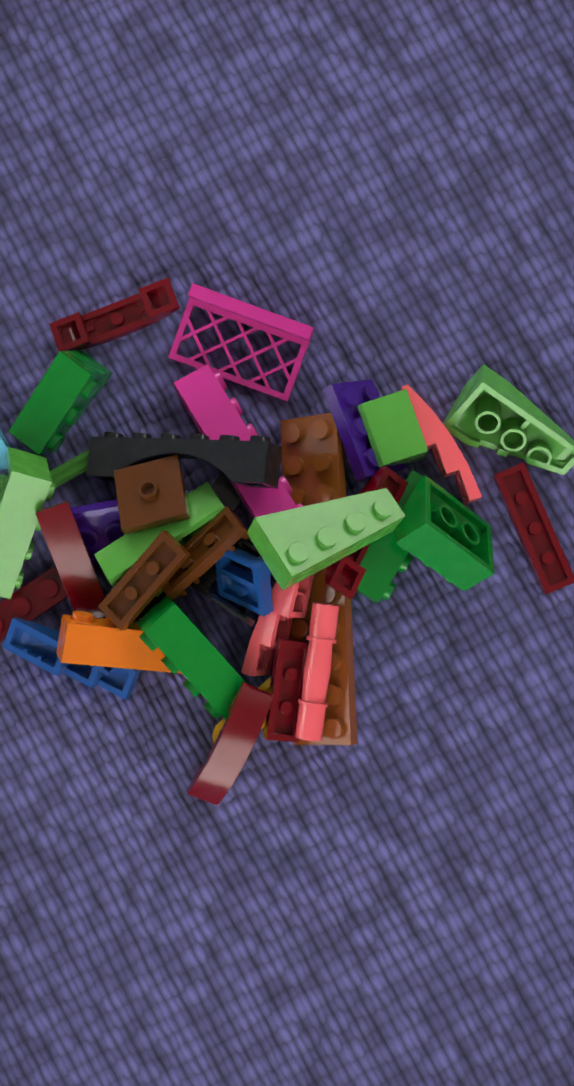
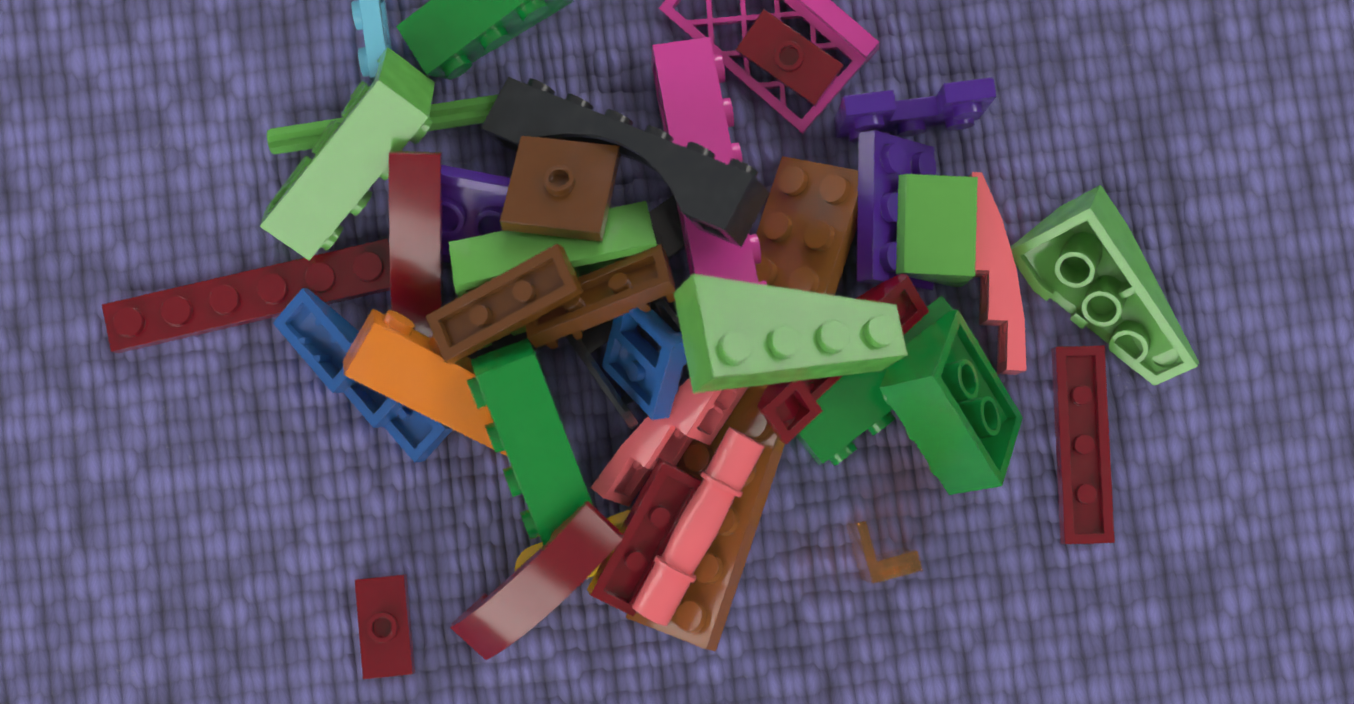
camera: 20 degrees right, 0 degrees up
(145, 809) = (384, 626): none -> dark red plate
(261, 358) = (789, 57): none -> dark red plate
(374, 350) = (954, 105): none -> dark purple plate
(440, 651) = (882, 566): none -> clear orange panel

